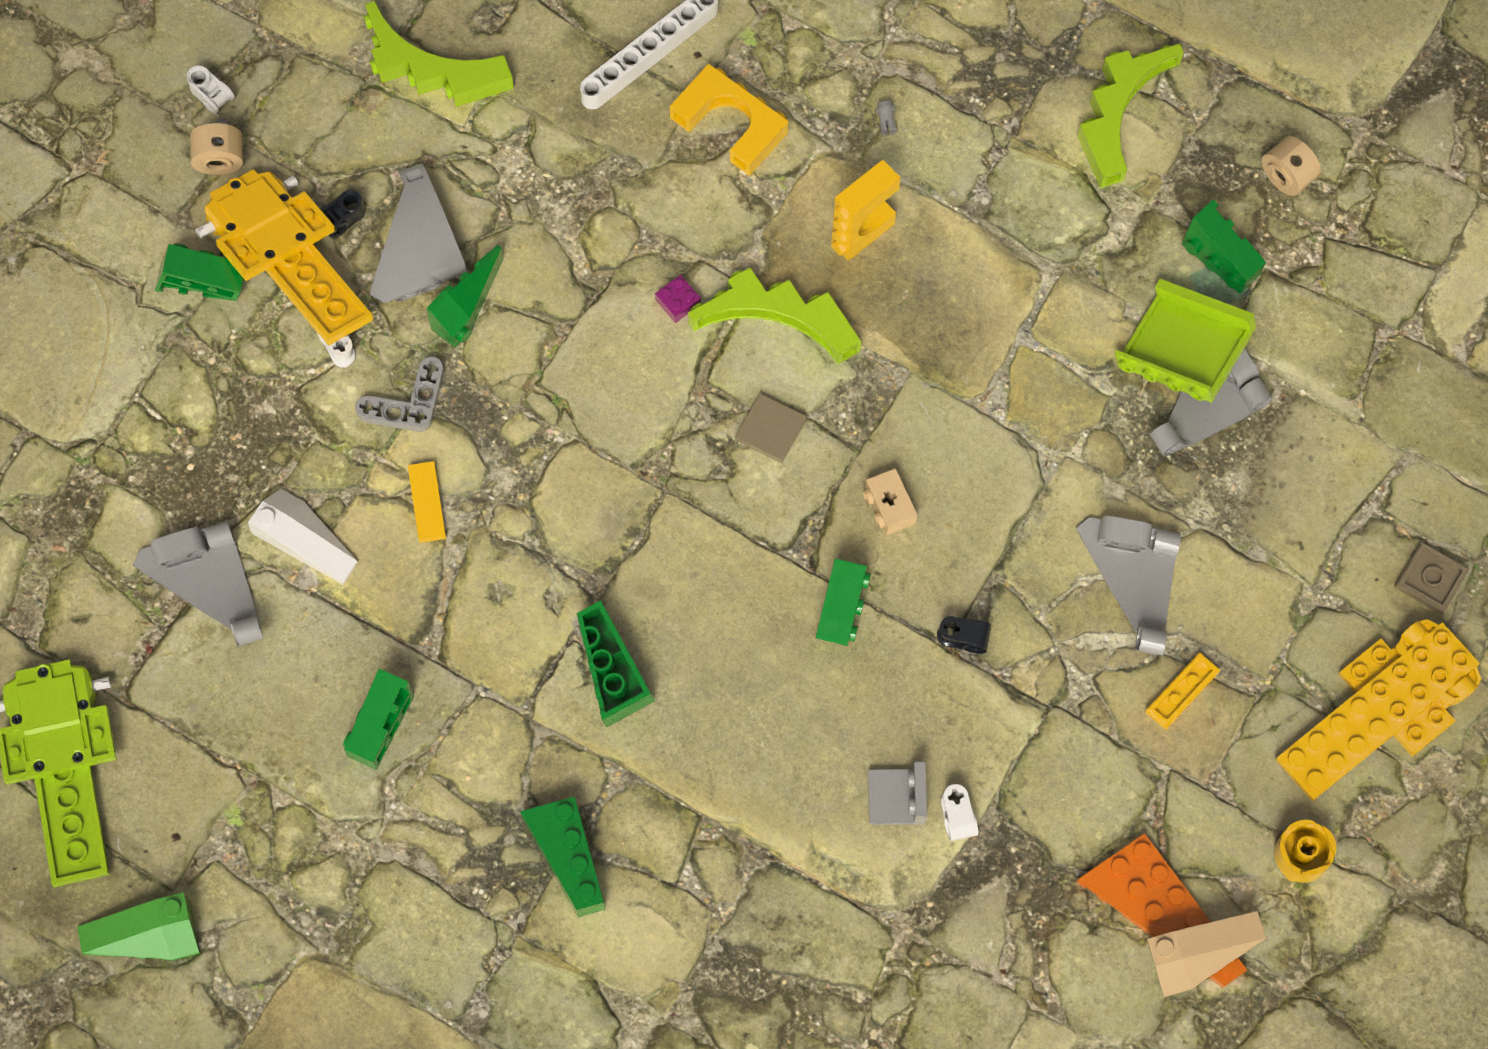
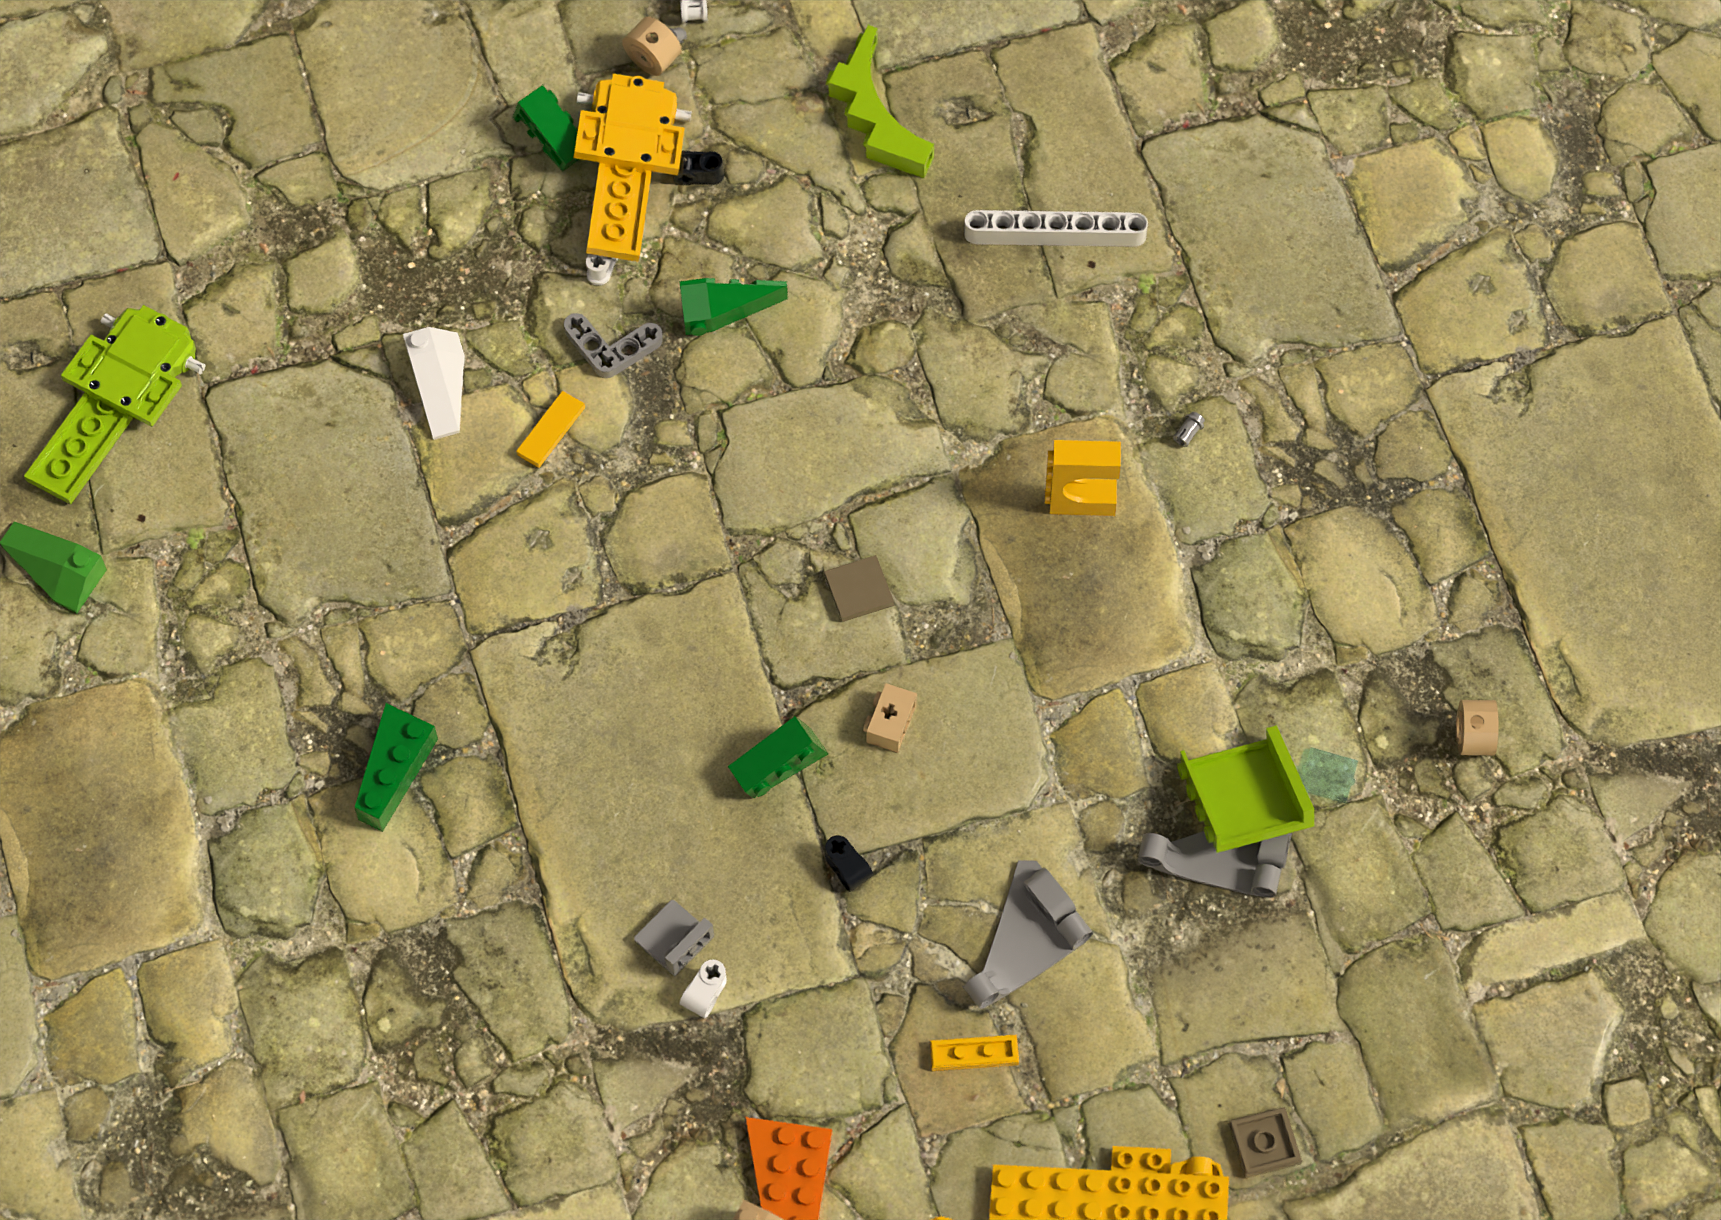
camera: 45 degrees right, 5 degrees down
(206, 573) = (345, 351): light grey panel -> none
(378, 719) = (356, 553): green wedge -> none
(419, 244) = (729, 235): light grey panel -> none
(614, 673) = (558, 663): green wedge -> none
(677, 298) = (886, 434): magenta piece -> none
(715, 90) = (1070, 298): yellow arch -> none
(781, 303) = (959, 500): lime arch -> none
(1125, 78) = (1384, 561): lime arch -> none
(1222, 250) = (1352, 745): green wedge -> none

